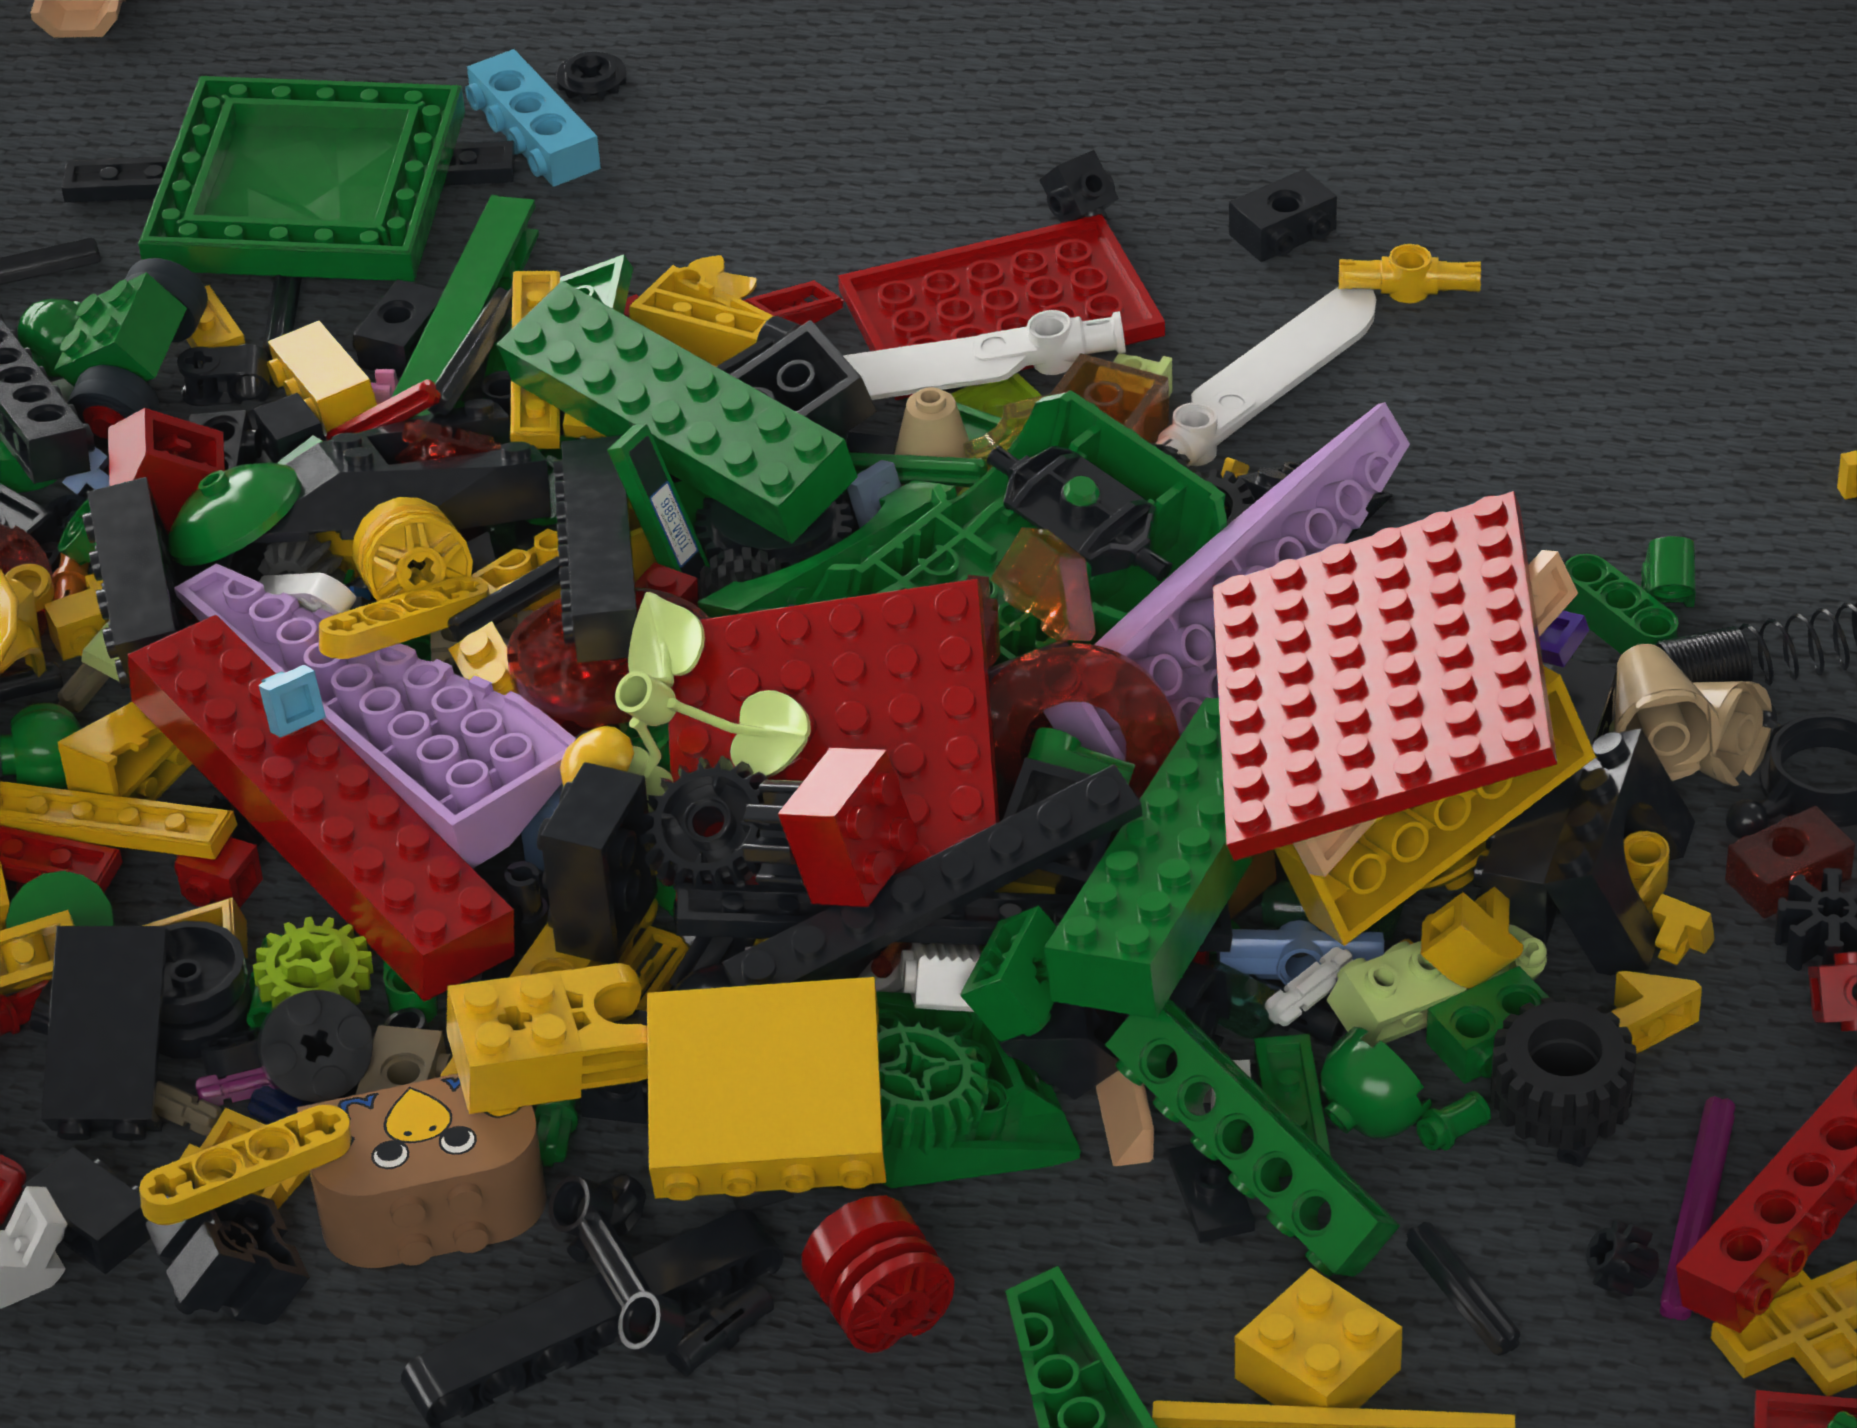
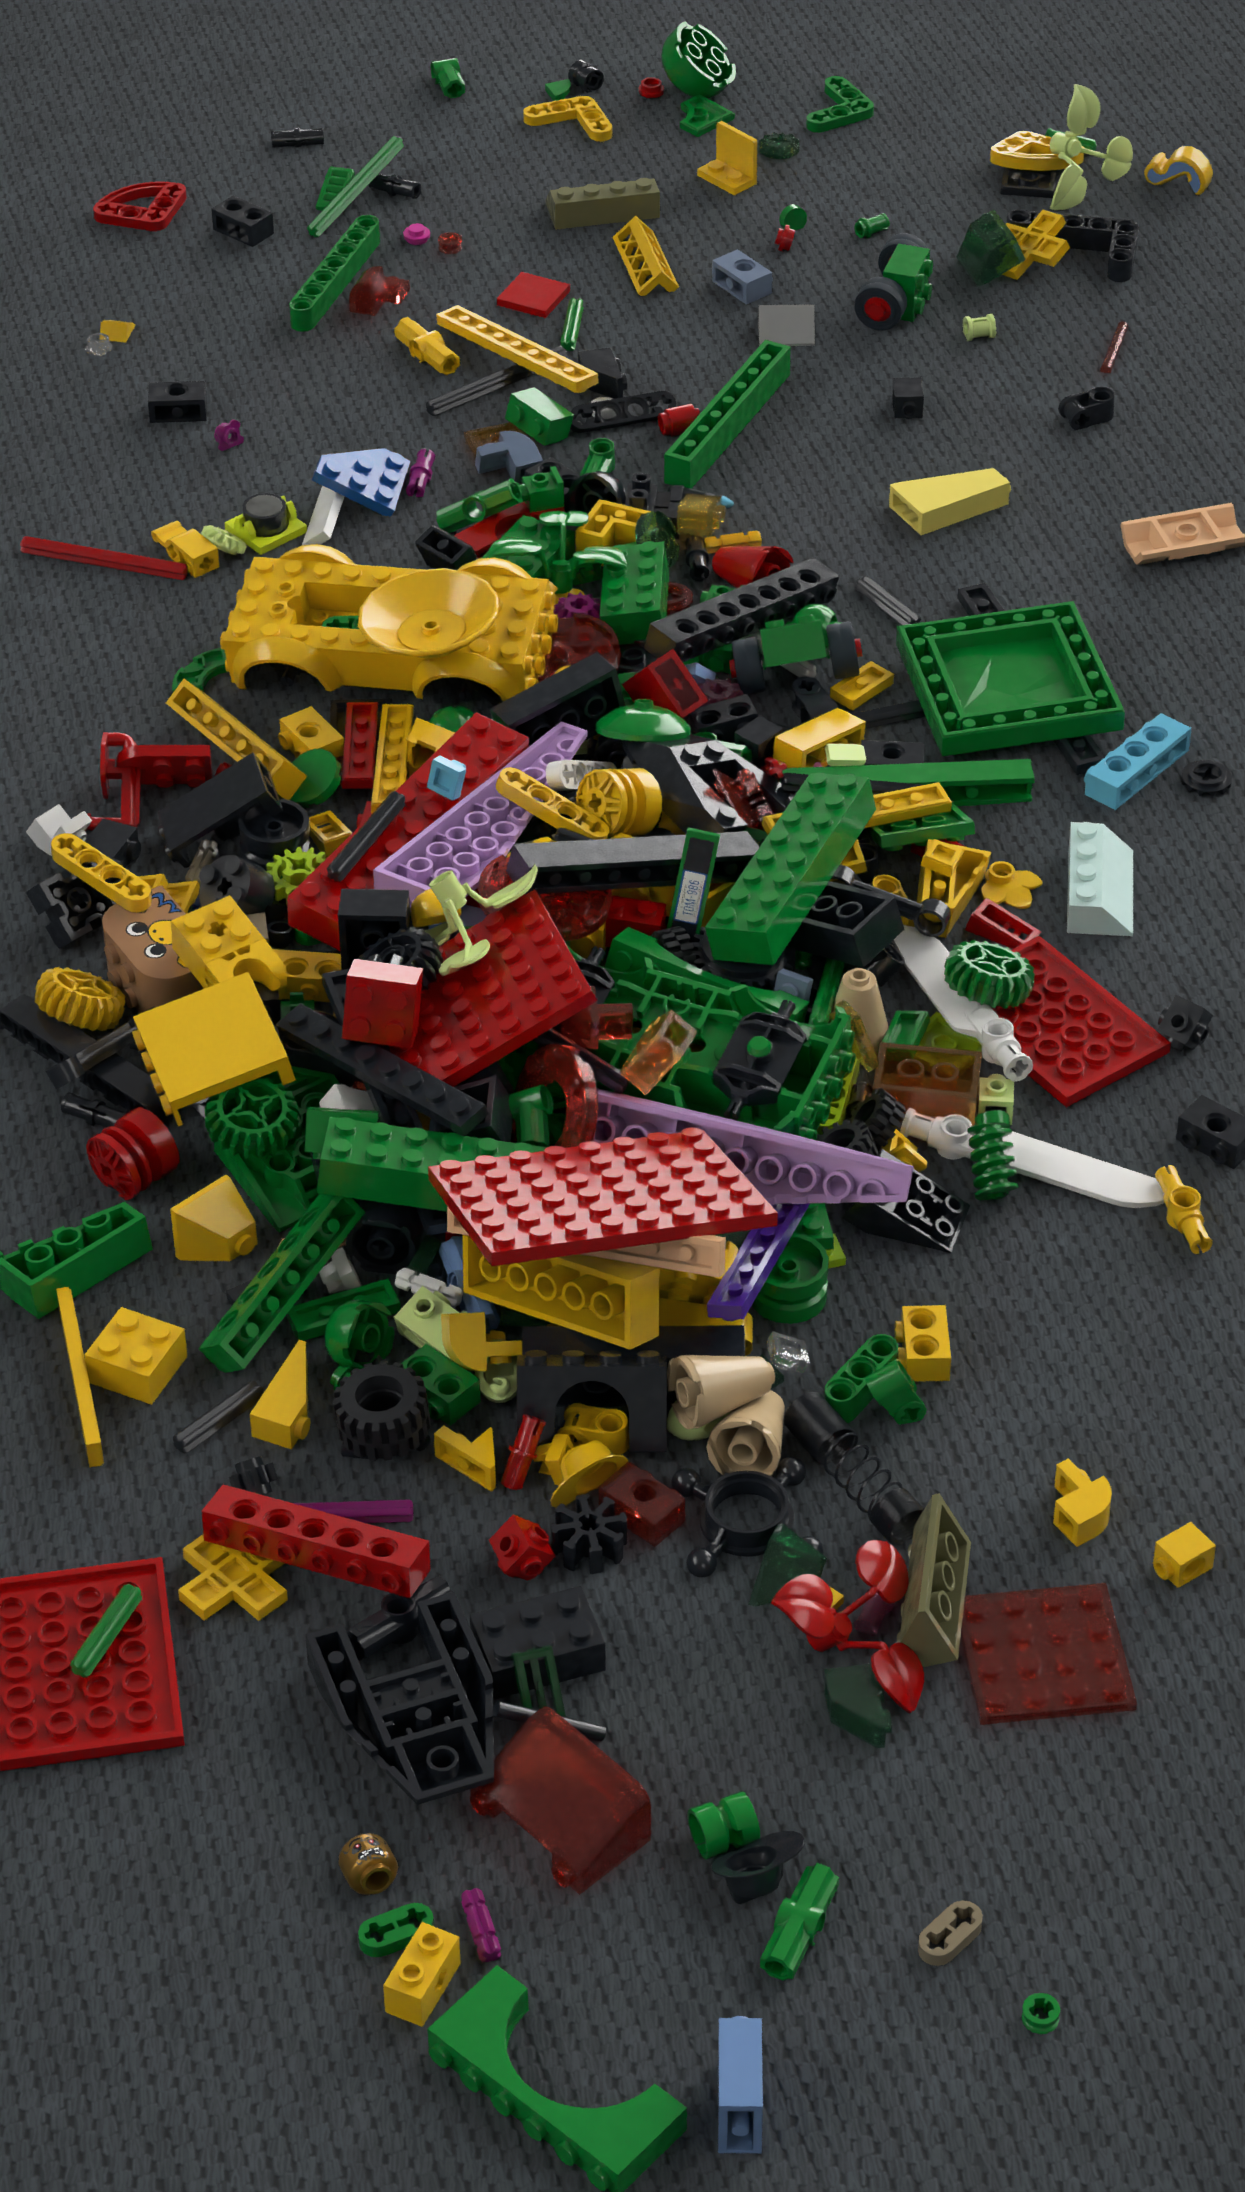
camera: 70 degrees right, 0 degrees up
(360, 824) = (366, 836): none -> black axle
(387, 350) = (845, 754): none -> yellowish green slope
(467, 1286) = (79, 999): none -> yellow gear
(680, 299) = (942, 858): none -> yellow tile
(750, 210) = (1099, 881): none -> light aqua slope
(930, 314) = (989, 974): none -> green gear
(1075, 1204) = (213, 1224): none -> yellow slope
(1182, 391) = (993, 1117): none -> green tile
(1278, 397) = (991, 1161): none -> green piece
(1466, 1192) = (283, 1407): none -> yellow slope
(1575, 531) = (924, 1342): none -> yellow brick
(1668, 945) = (522, 1452): none -> red axle
(1733, 894) = (584, 1470): none -> yellow piece

